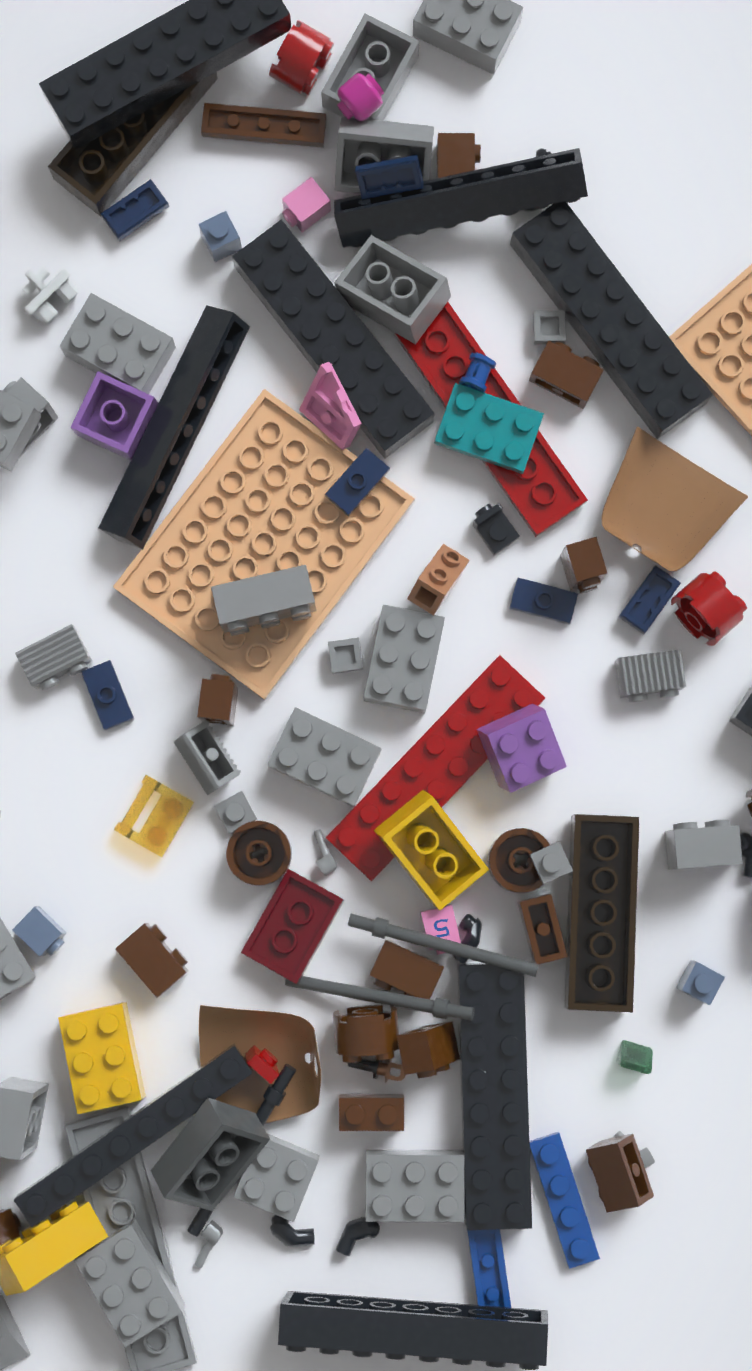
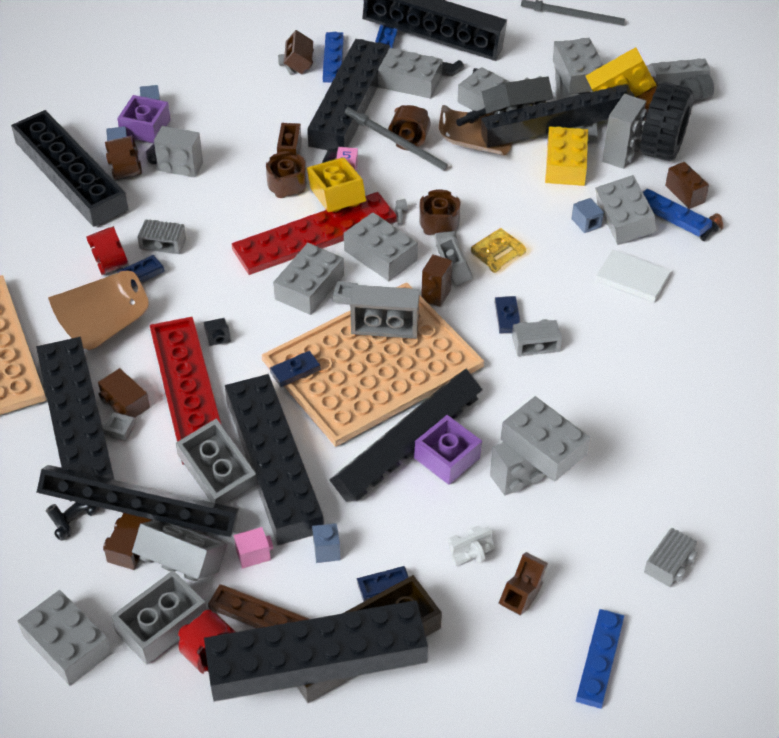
camera: 160 degrees left, 35 degrees down
(117, 344) = (430, 494): light grey brick -> none
(153, 959) = (522, 188): reddish brown brick -> none
(263, 1063) = (474, 131): red plate -> none
(292, 926) = (435, 174): dark red plate -> none
(330, 407) = (293, 409): bright pink wing -> none
(360, 97) = (178, 576): dark pink head -> none
(371, 1112) = (423, 98): reddish brown brick -> none
(381, 928) = (380, 161): dark grey bar -> none
(389, 177) = (183, 523): dark blue plate -> none
(405, 971) = (375, 150): reddish brown brick -> none
(428, 1049) = (379, 108): reddish brown brick -> none
(438, 579) = (267, 304): nougat brick -> none
(478, 372) = (183, 401): blue bush -> none
(488, 428) = (192, 374): teal plate -> none
(521, 748) = (258, 215): medium lavender brick -> none
(543, 601) = (206, 290): dark blue plate -> none
(551, 862) = (269, 156): light grey plate -> none
(583, 565) = (172, 287): reddish brown brick -> none
(602, 913) = (249, 144): dark brown brick -> none
(635, 1057) = (266, 92): clear green slope -> none
(700, 982) = (213, 108): sand blue brick -> none

